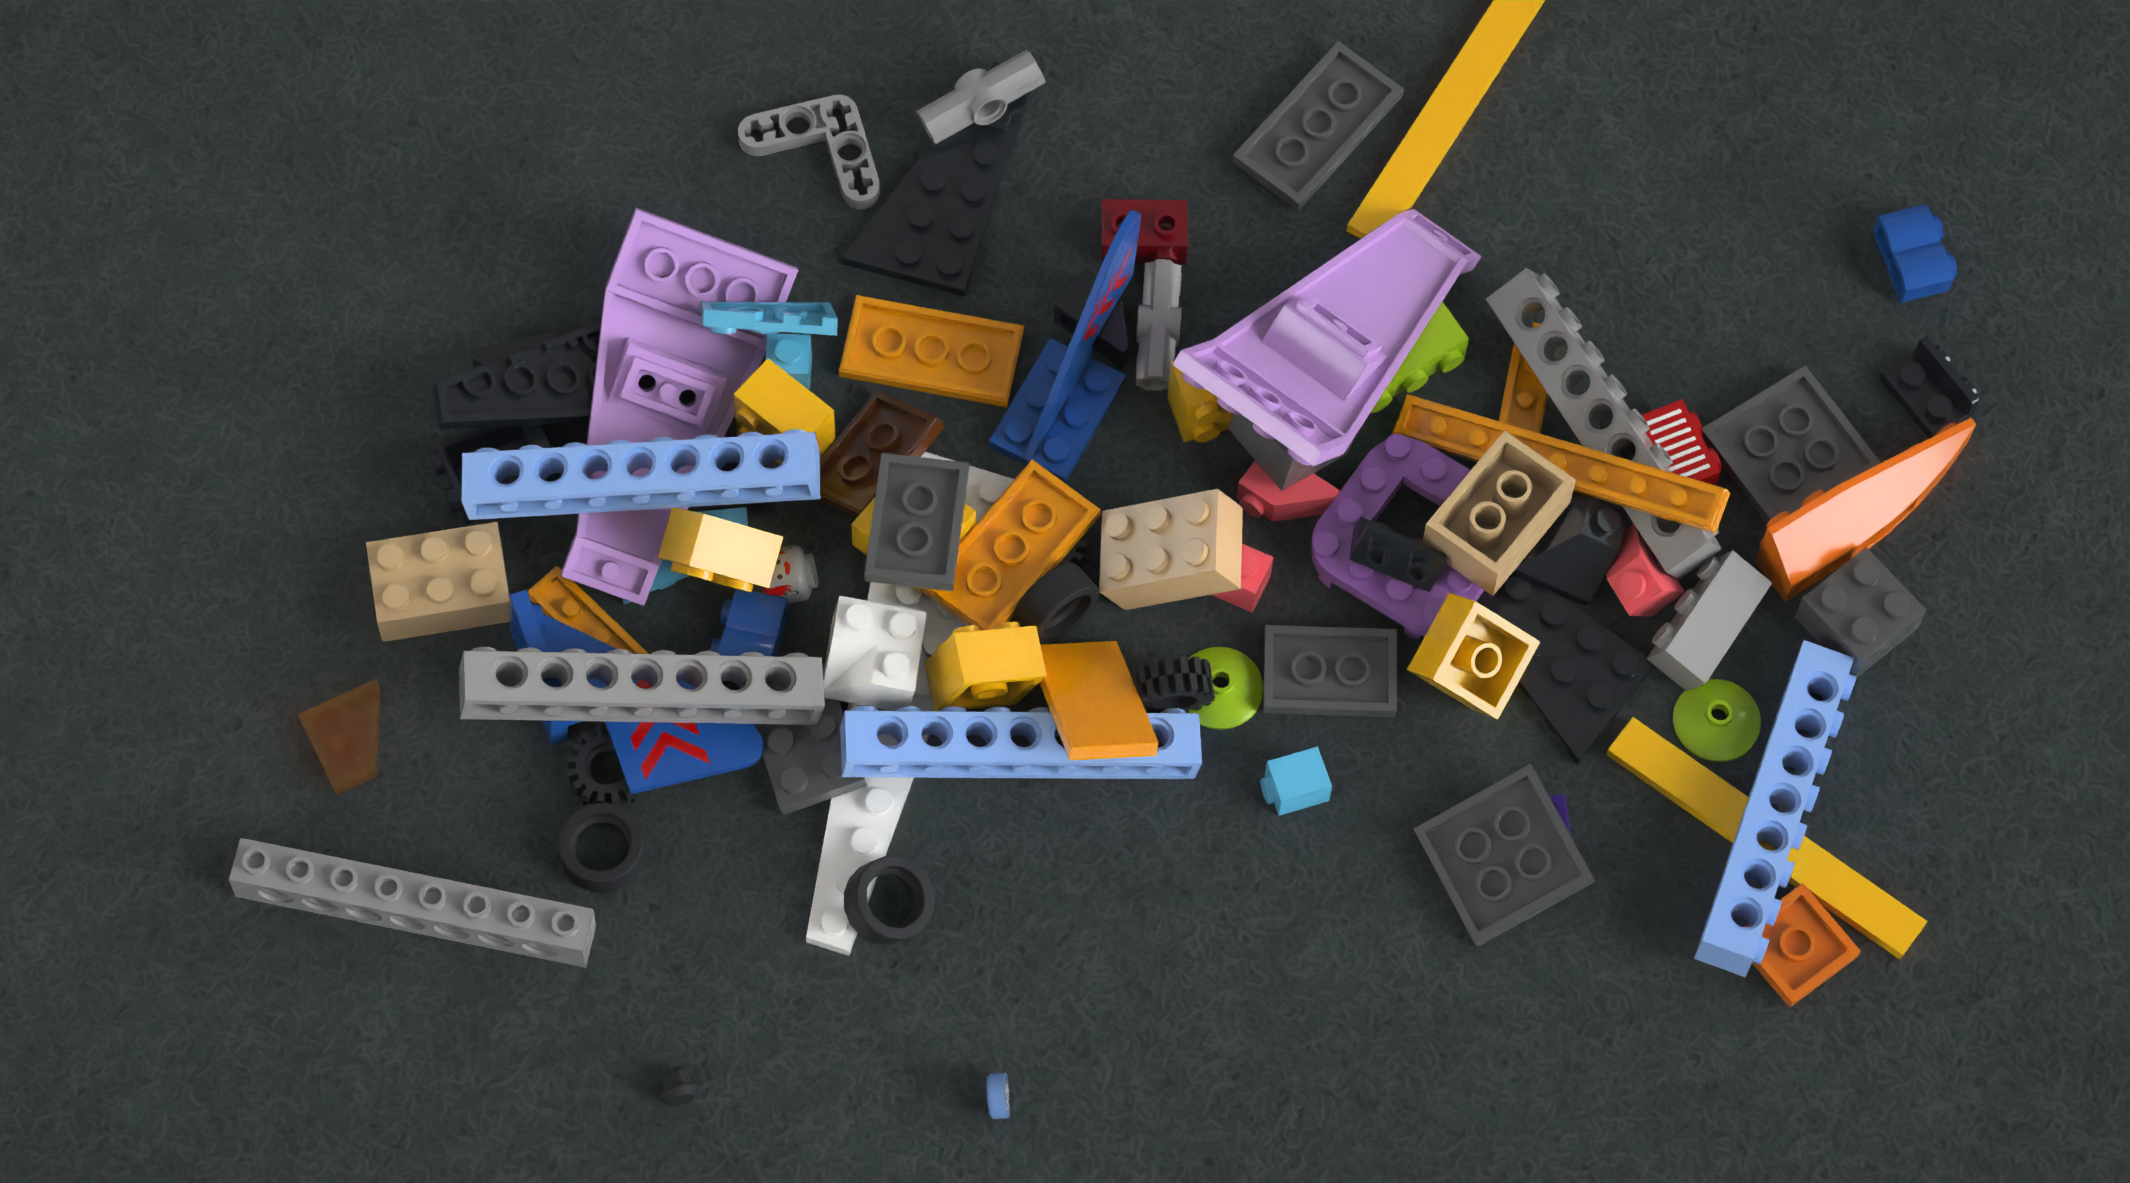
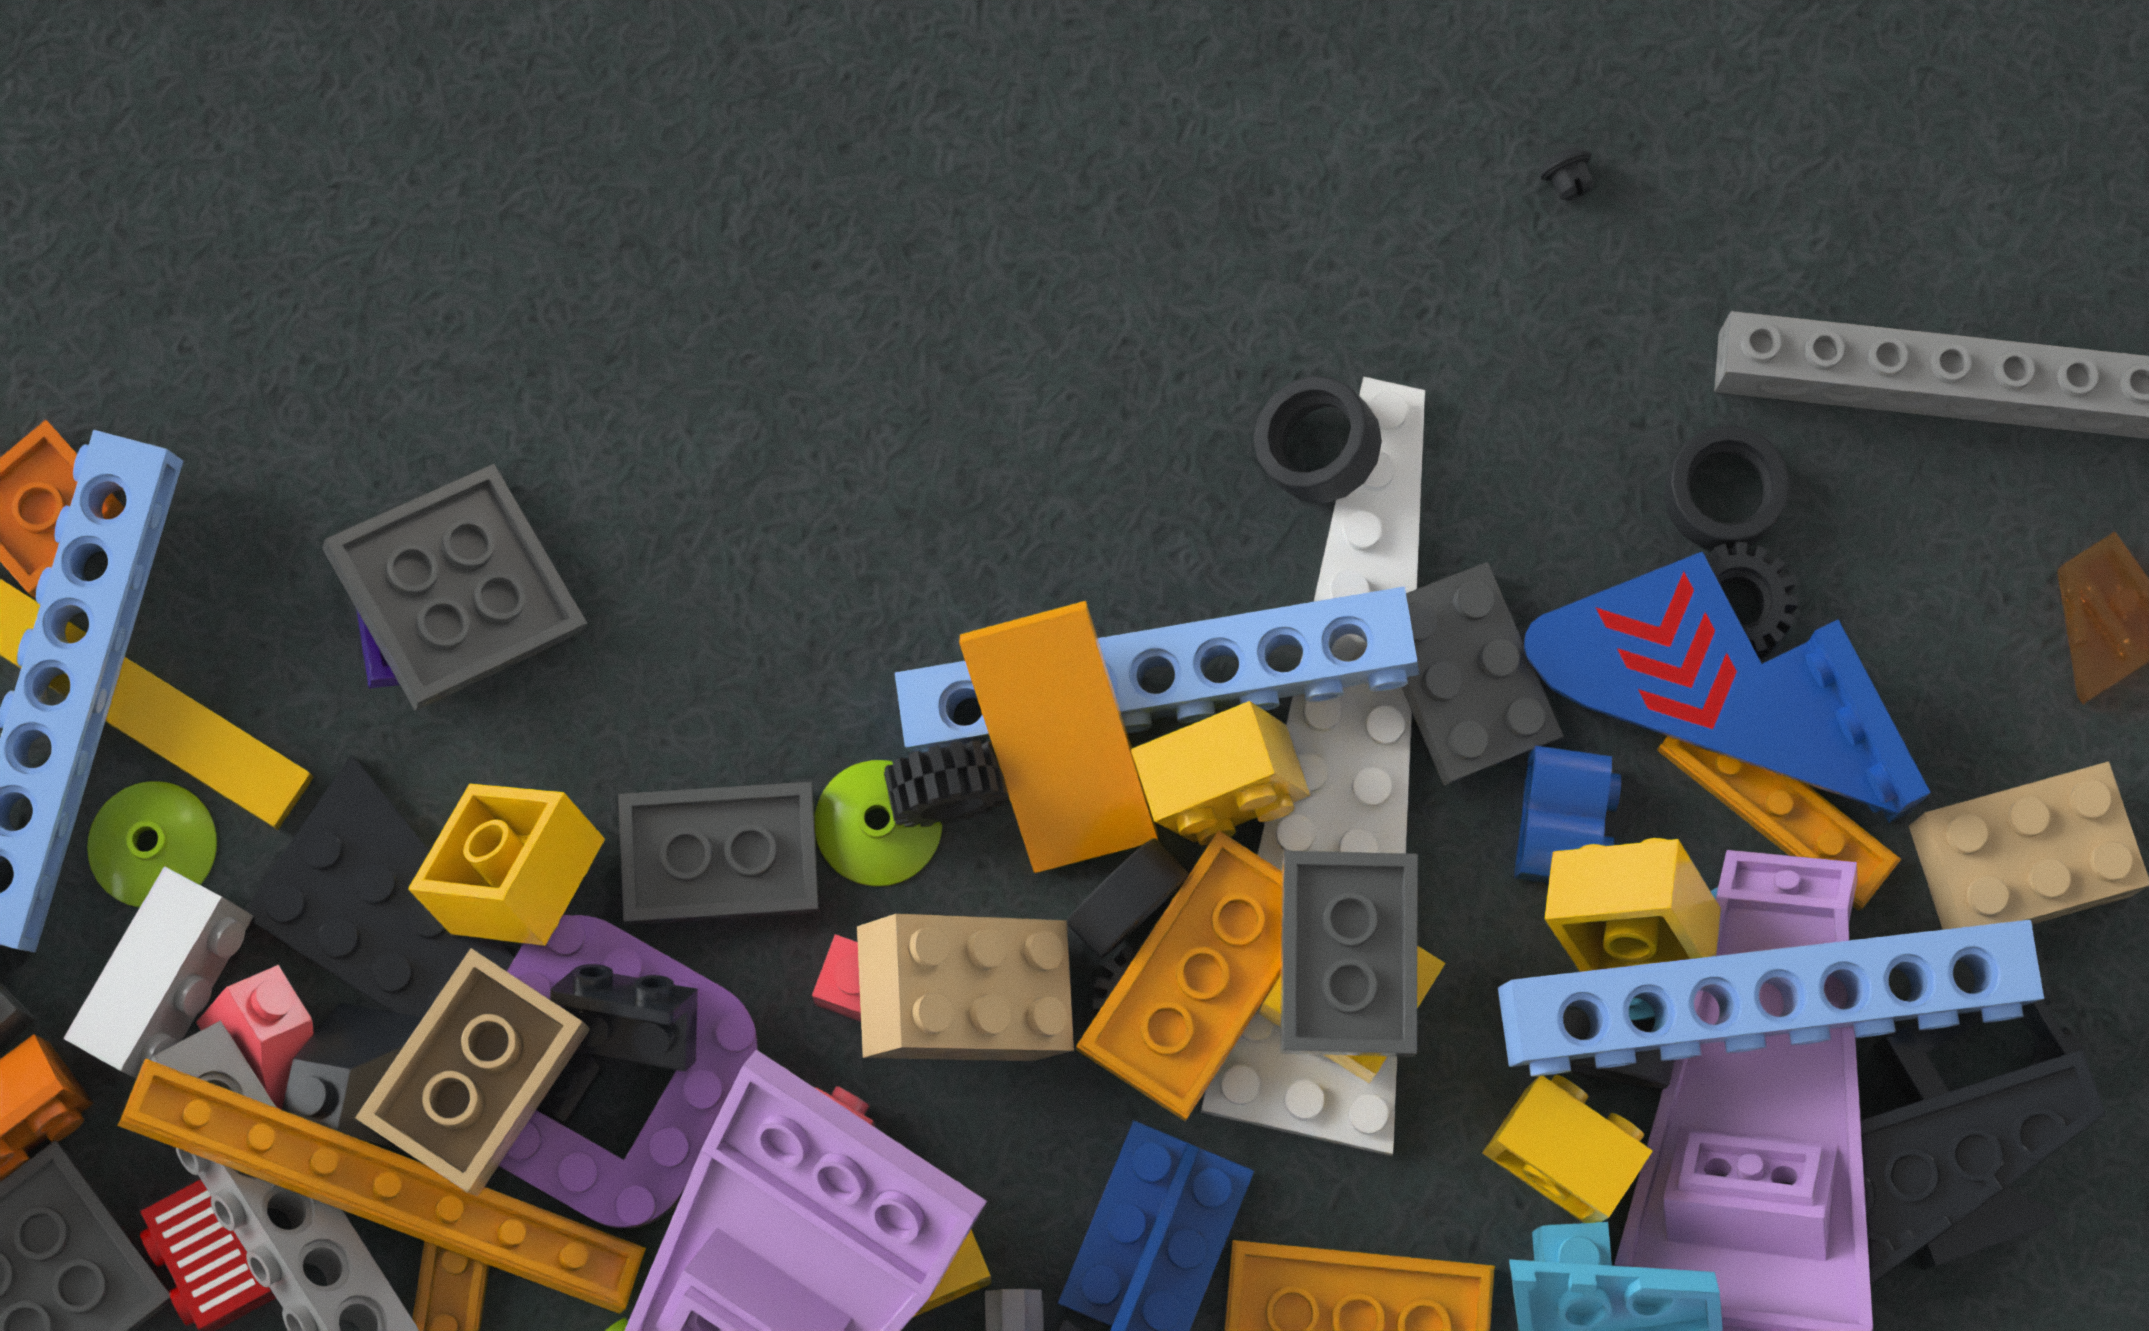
camera: 175 degrees right, 10 degrees up
(623, 701) = (1943, 600): light grey brick -> none
(793, 575) = (1515, 919): light grey head -> none
(853, 460) = (1426, 1124): reddish brown tile -> none
(873, 653) = (1385, 778): white slope -> none
(998, 1096) = (1136, 194): medium blue tile -> none
(1296, 781) = (758, 675): medium azure brick -> none

